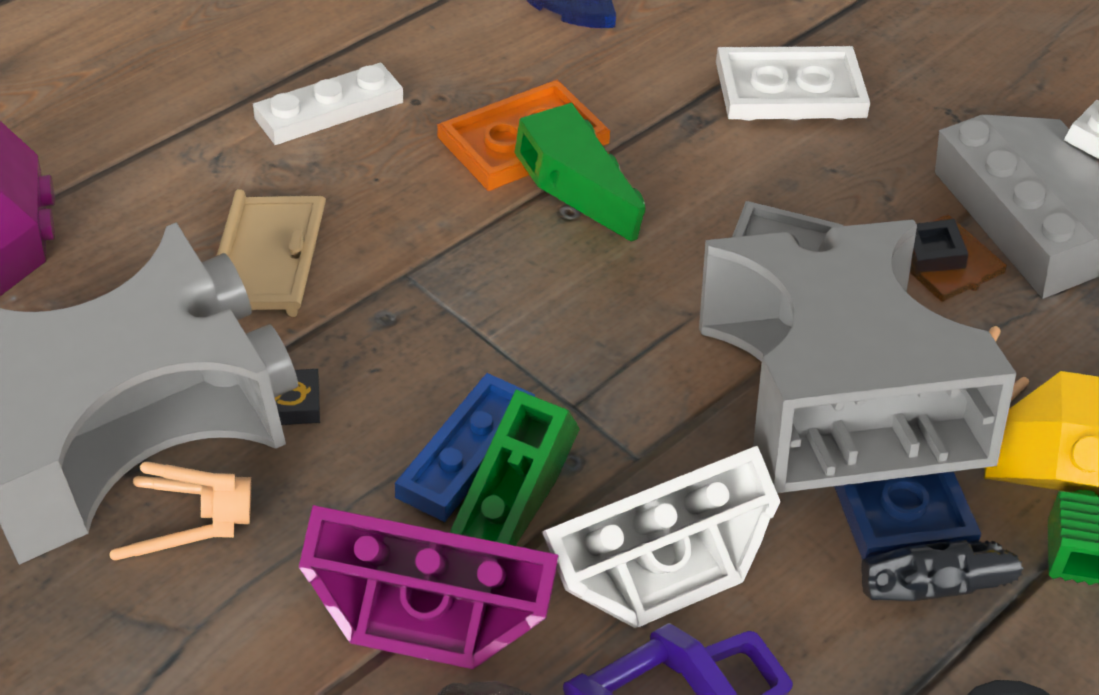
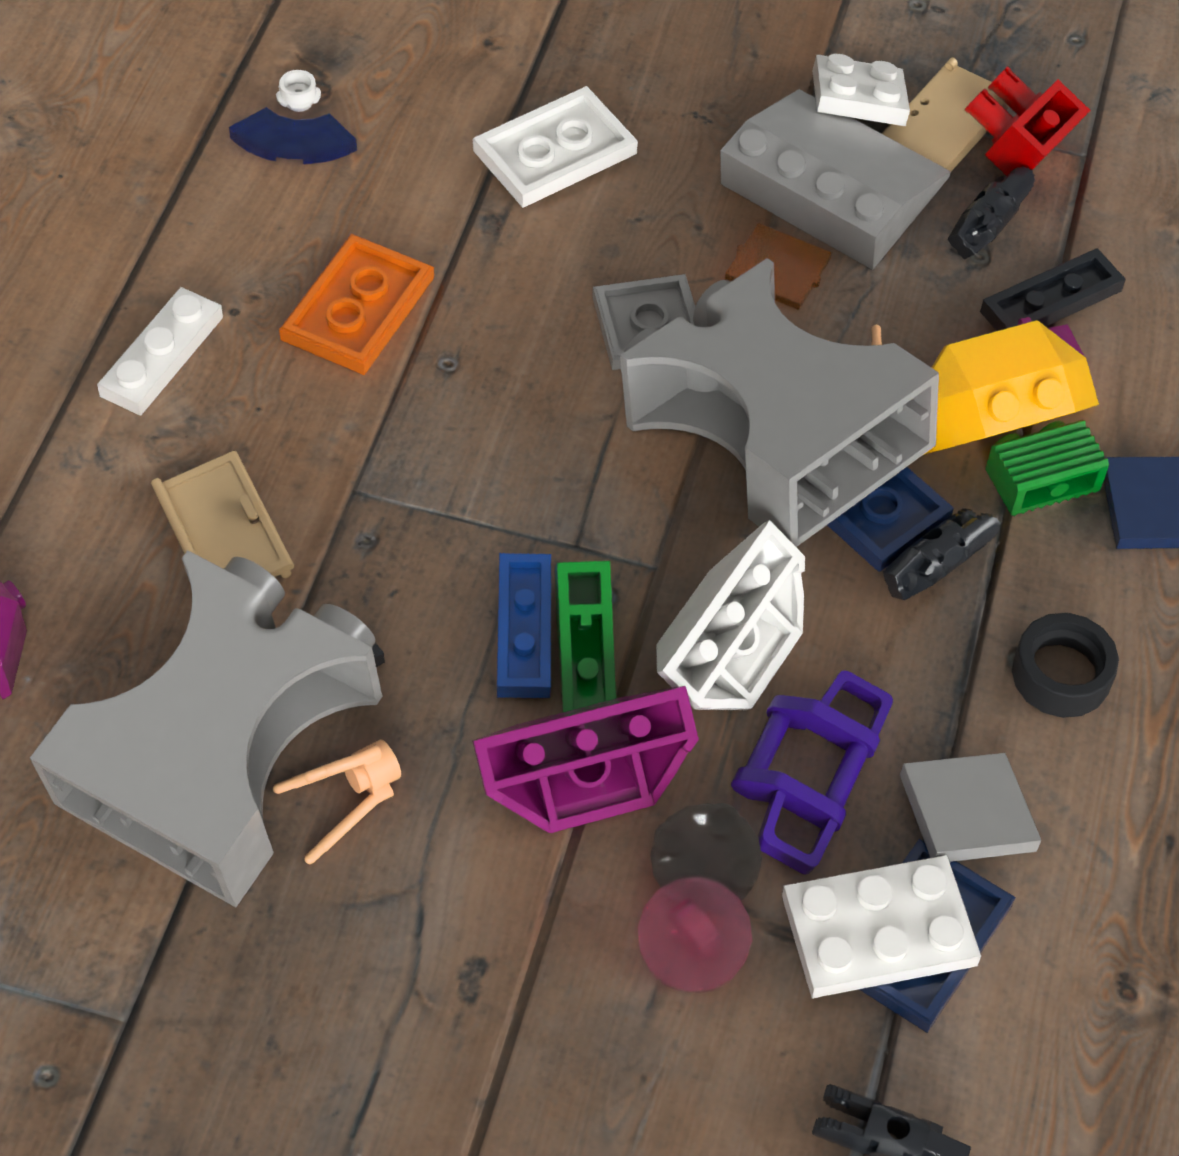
camera: 30 degrees left, 10 degrees up
(573, 166) = (440, 323): green slope -> none
(939, 247) = (775, 248): black tile -> none

